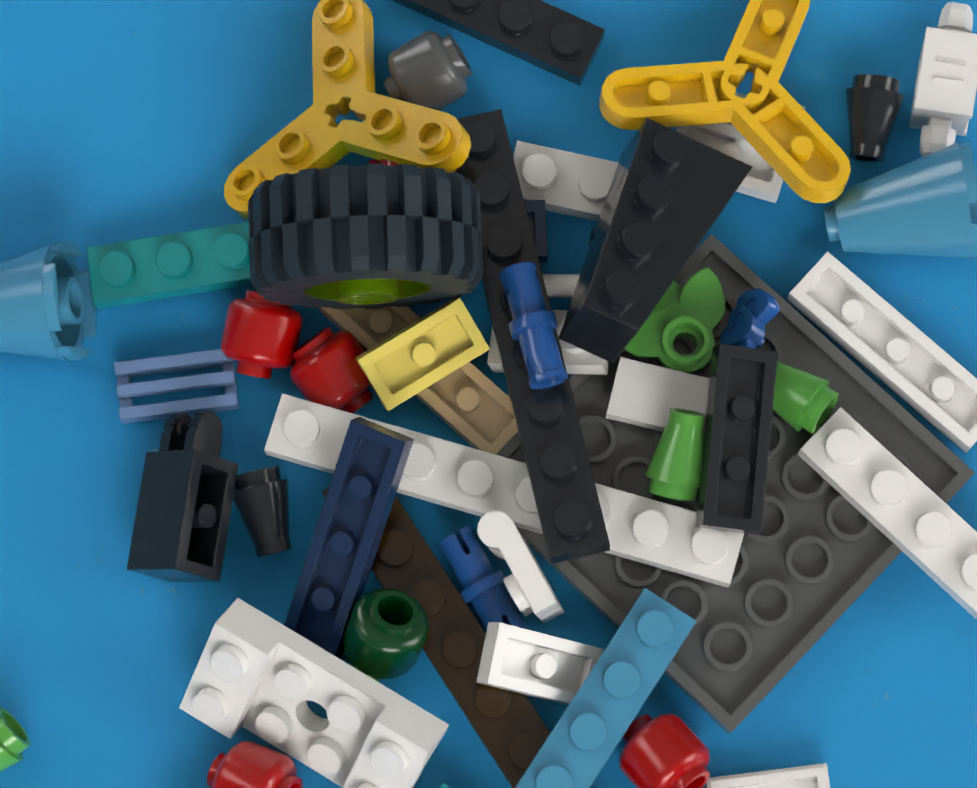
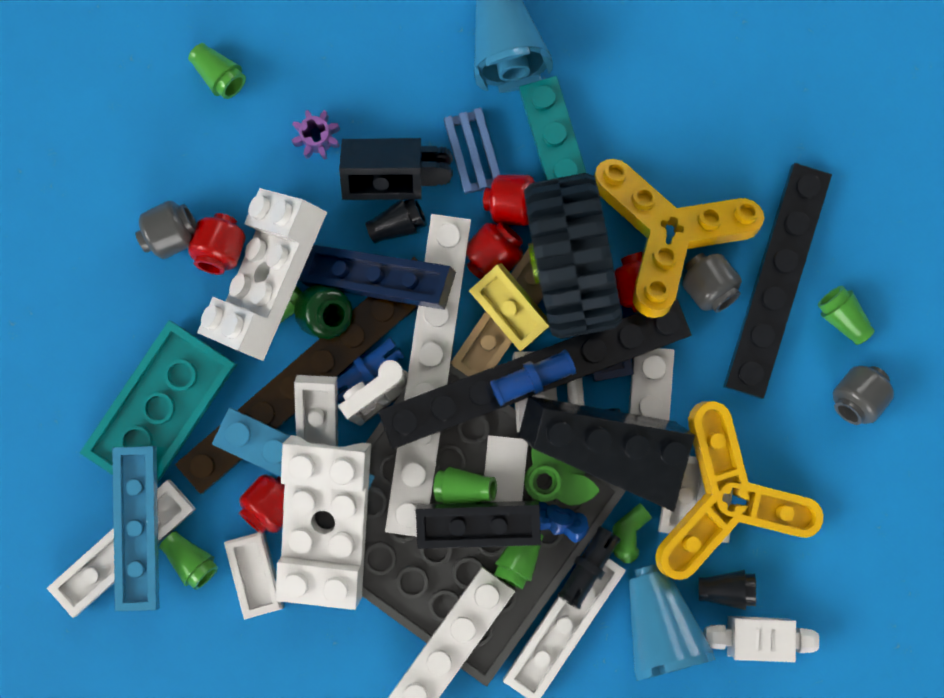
camera: 80 degrees right, 10 degrees up
(97, 603) = (326, 130): none -> medium lavender gear
(766, 678) = (317, 562): none -> white piece
(774, 248) = (626, 530): none -> bright green arm
(818, 298) = (589, 567): none -> black pin

